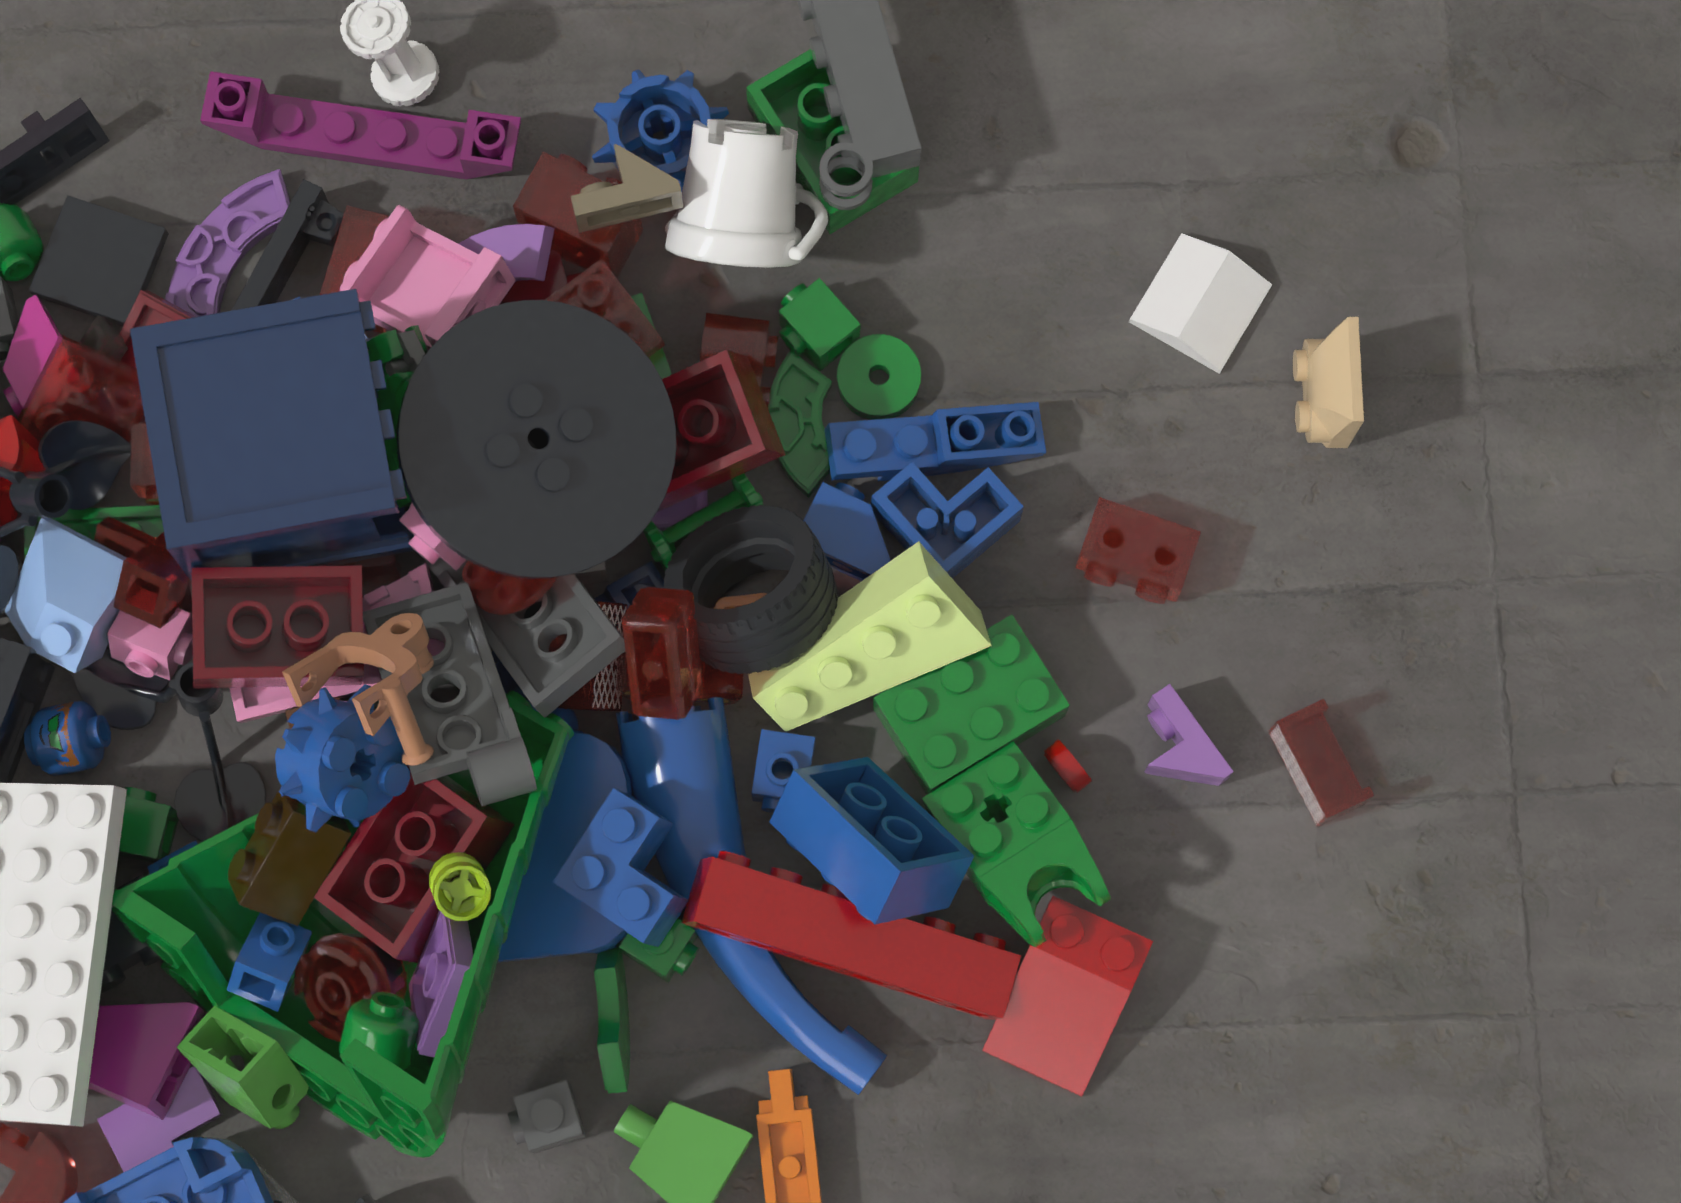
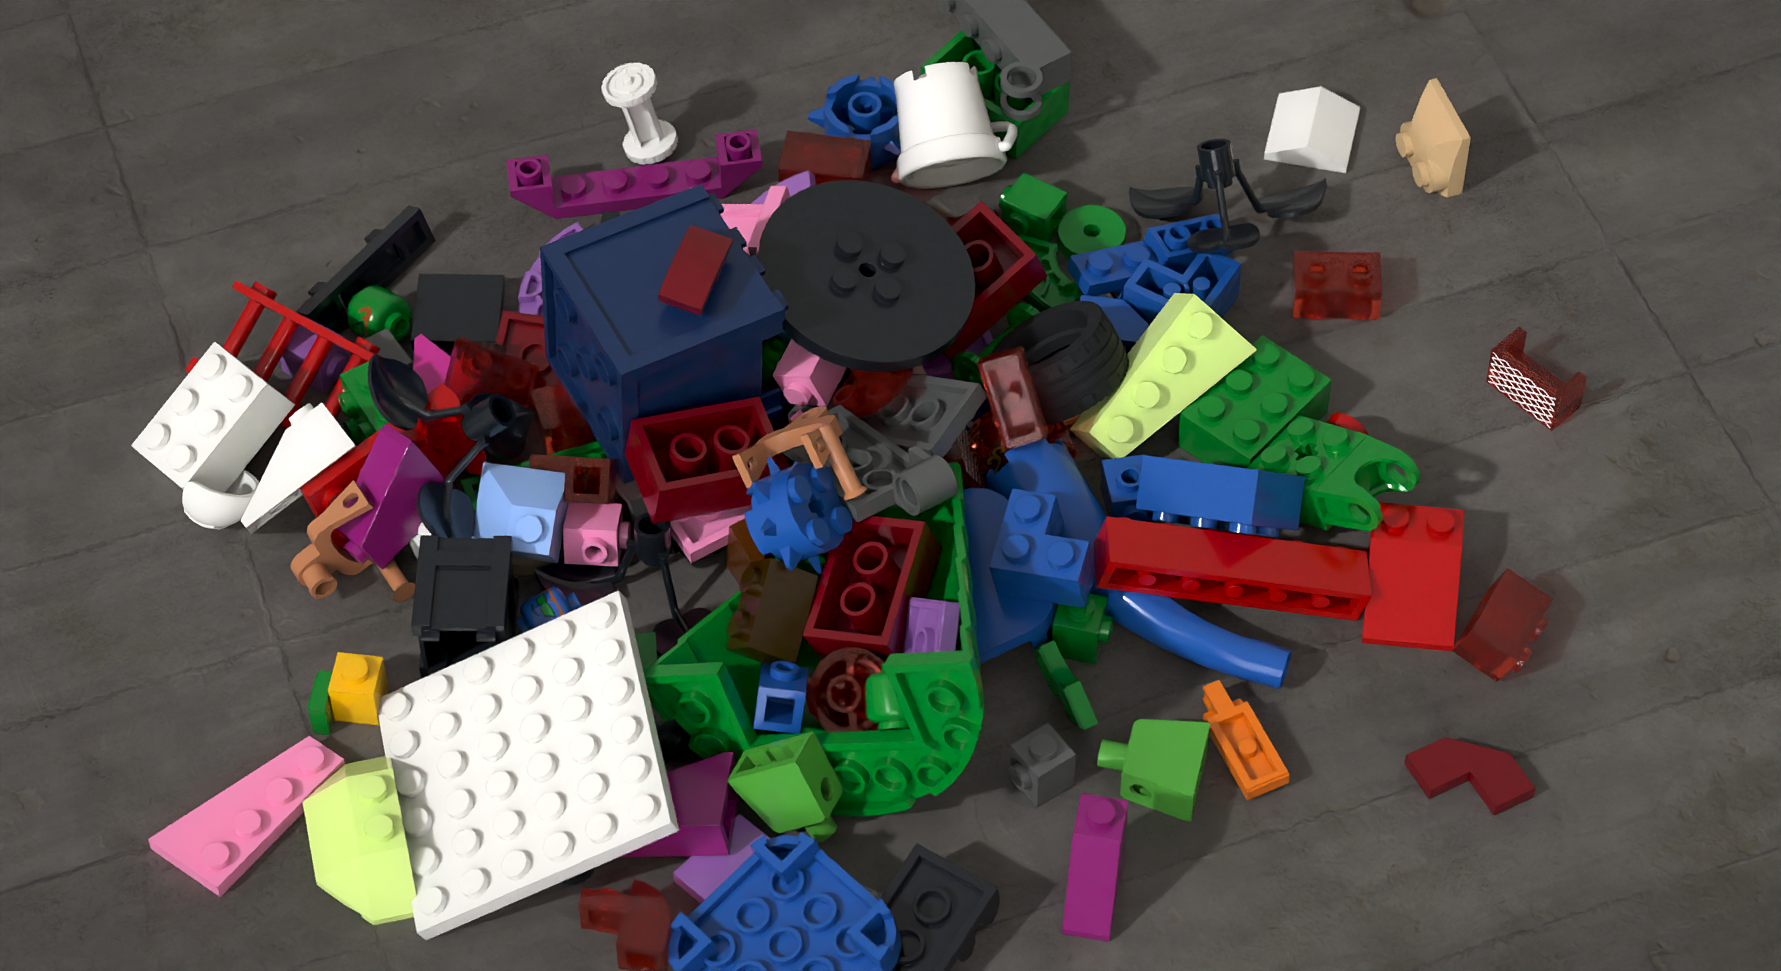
camera: 15 degrees left, 25 degrees down
(298, 428) = (695, 270): none -> dark red slope
(461, 897) = (930, 559): lime wheel -> none
(642, 193) = (868, 129): dark tan slope -> none
(1015, 472) = (1217, 170): none -> black plant
(1142, 1103) = (1503, 626): none -> clear red brick
(1195, 754) = (1432, 396): medium lavender slope -> none

